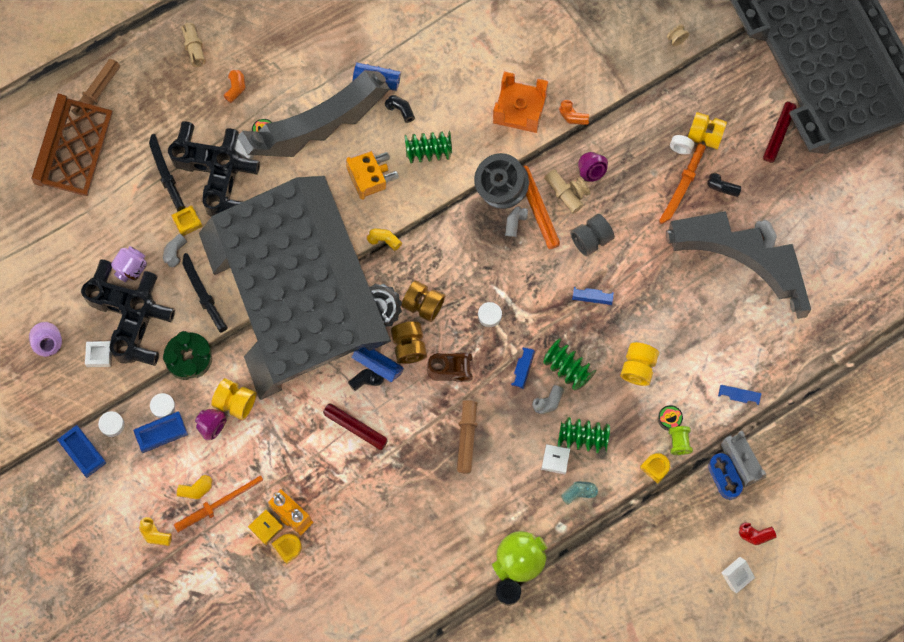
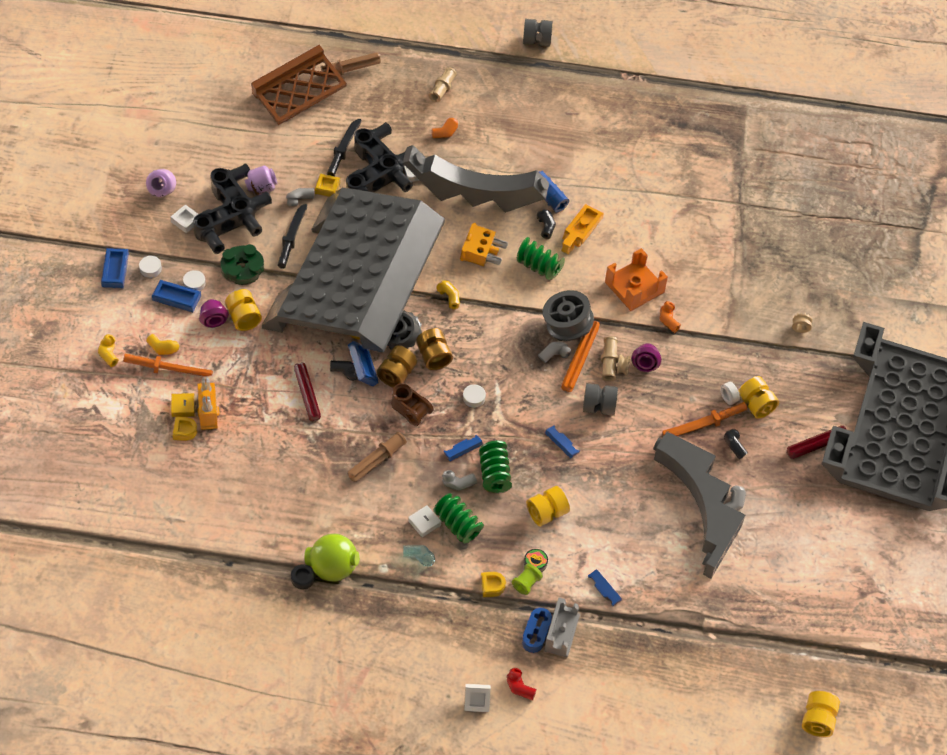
camera: 35 degrees right, 15 degrees down
(432, 89) = (580, 228): none -> light orange hinge

